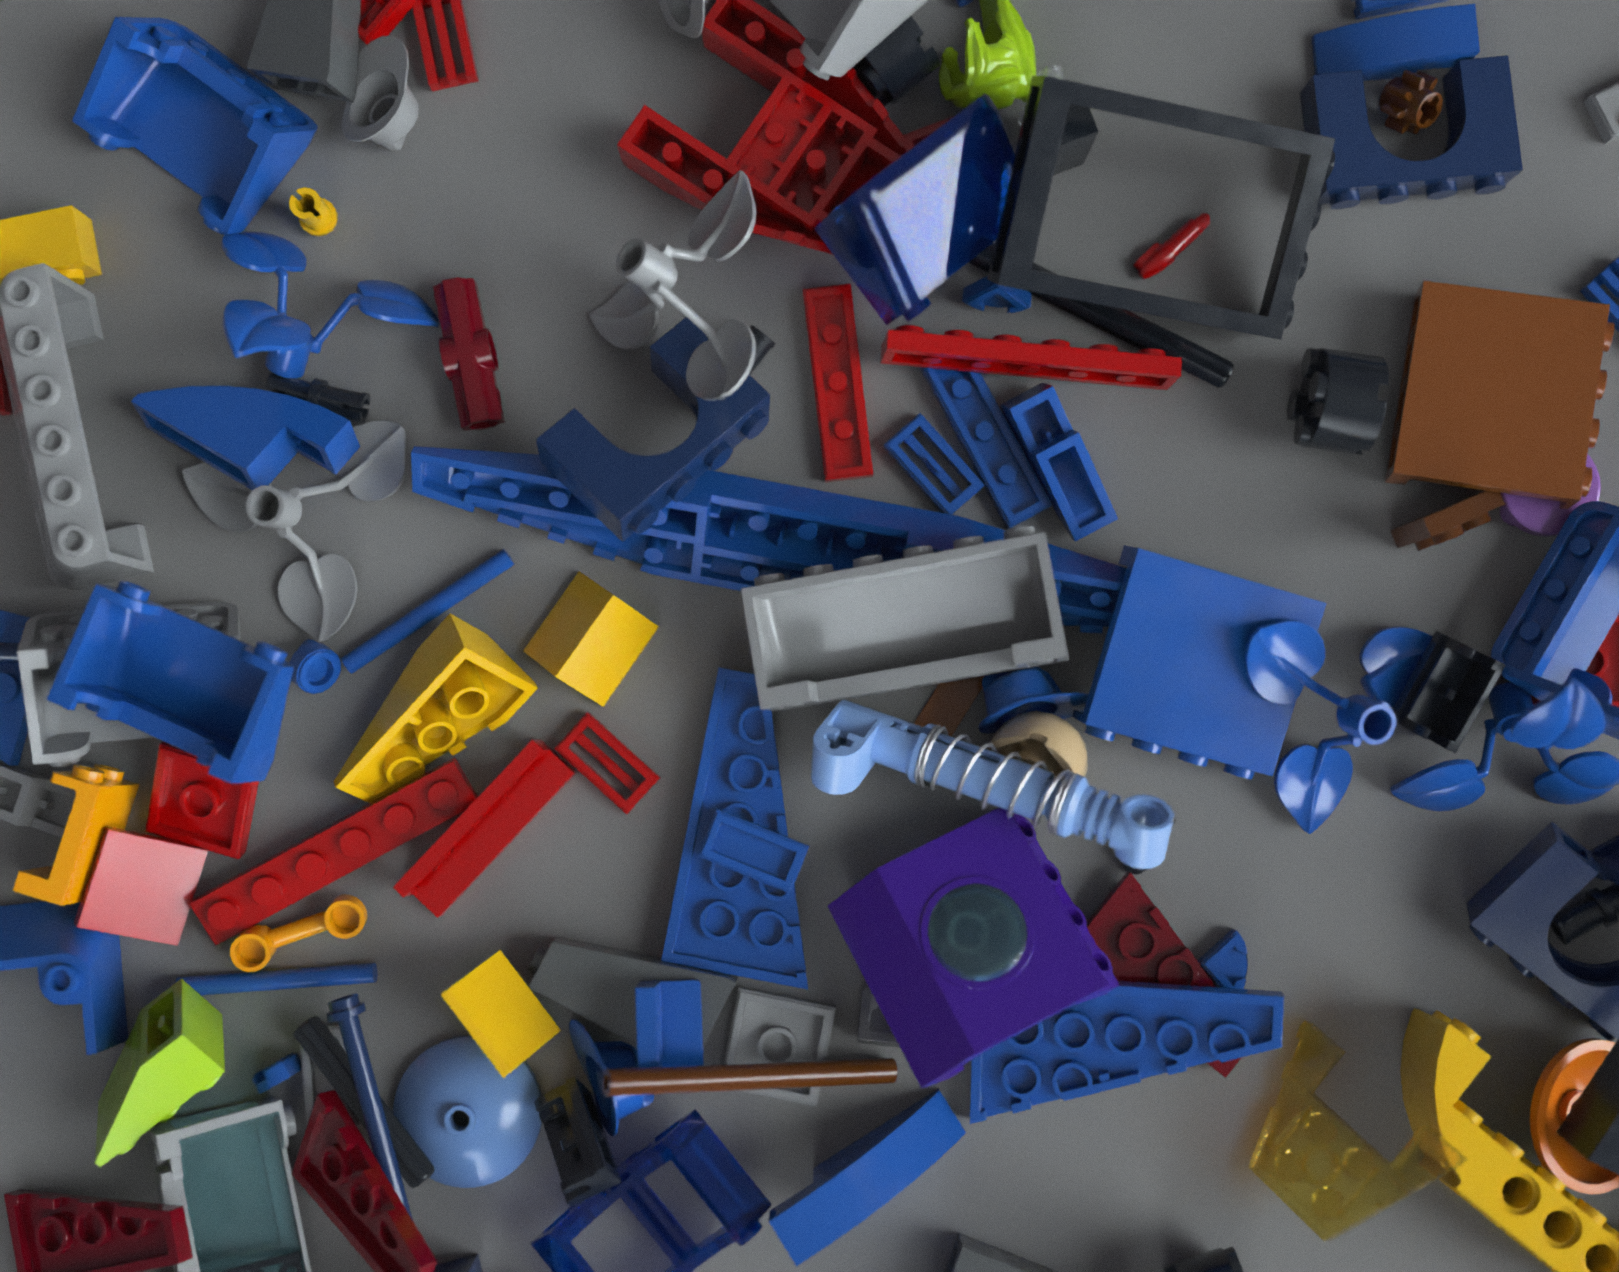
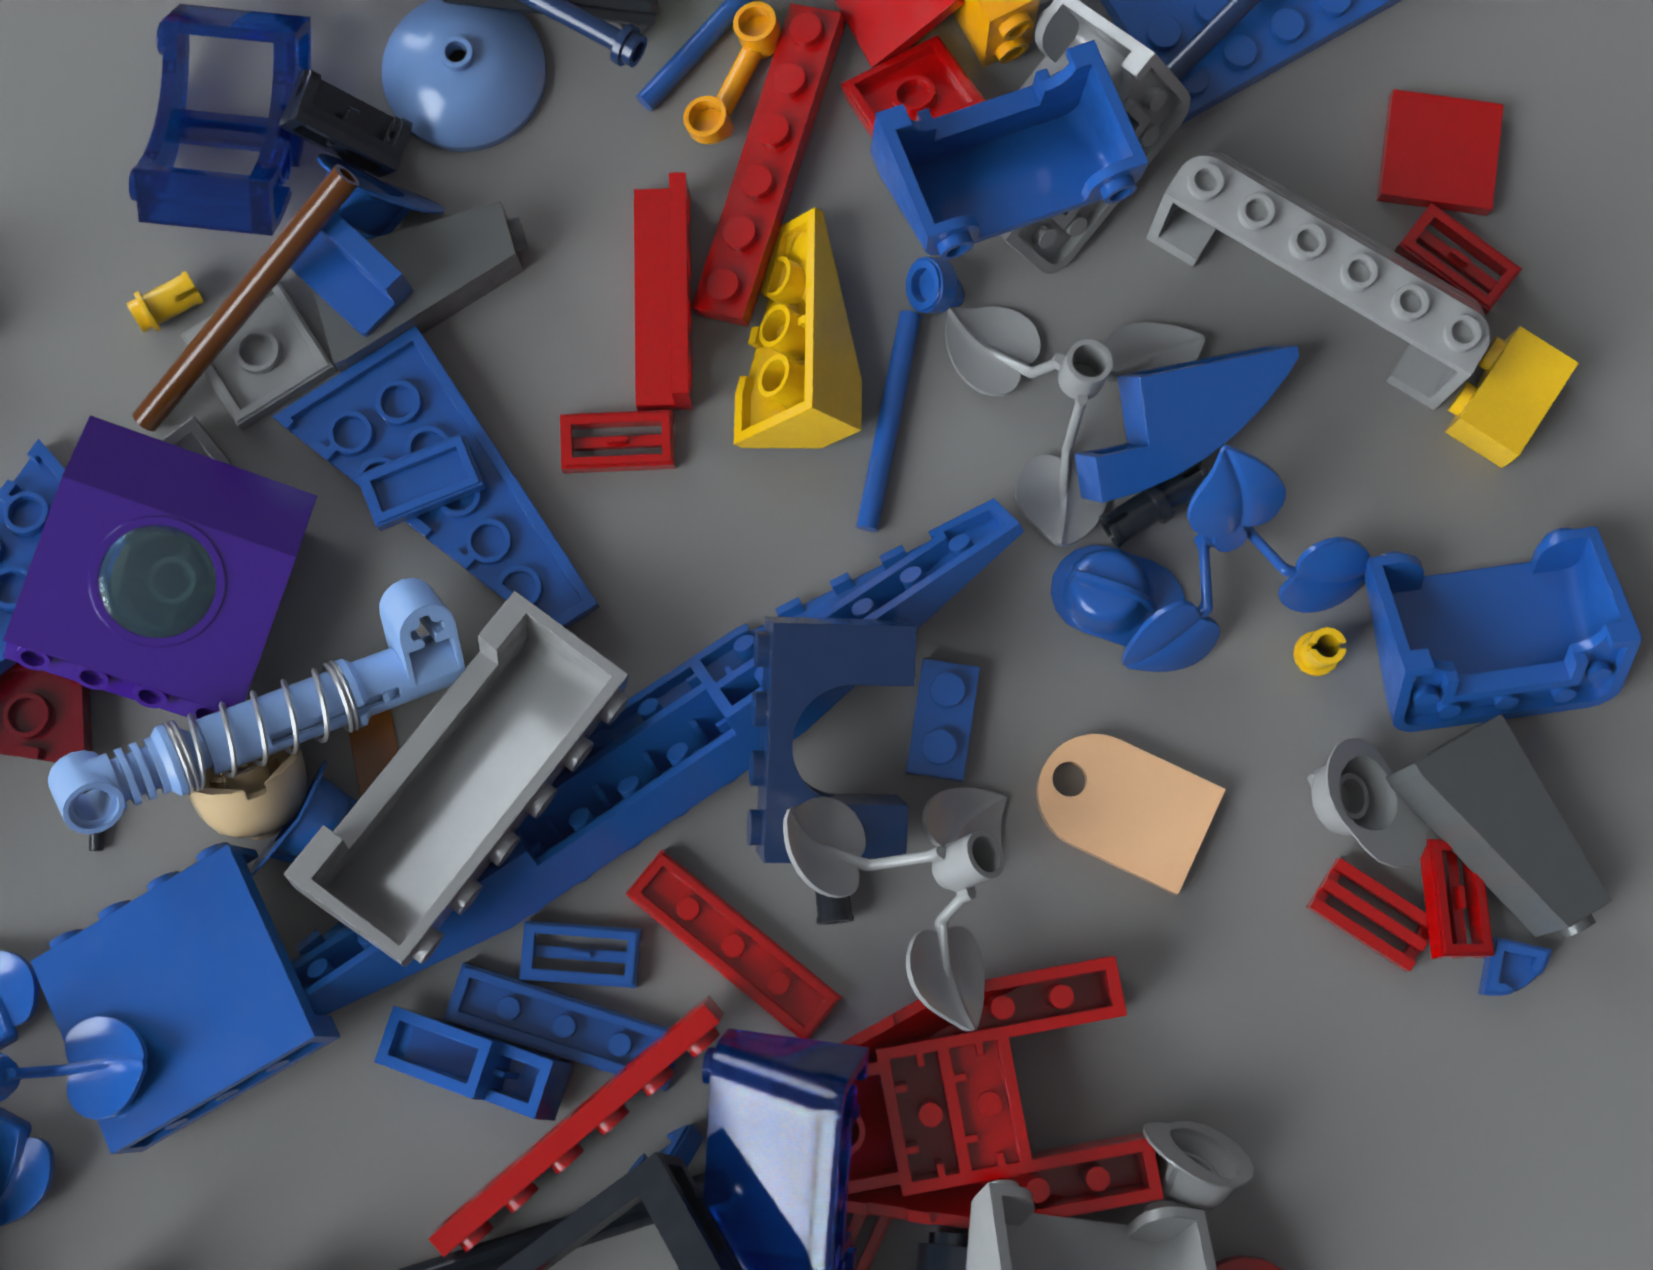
camera: 135 degrees right, 5 degrees down
(400, 370) = (1111, 591): none -> blue piece
(468, 354) = (1068, 660): dark red piece -> none
(501, 1013) = (501, 158): yellow slope -> none
(522, 235) = (1131, 809): none -> light nougat tile
(586, 387) = (942, 720): none -> blue plate
(590, 639) = (731, 525): yellow slope -> none
(806, 1138) = (164, 302): none -> yellow pin
(865, 1176) = (82, 312): blue slope -> none

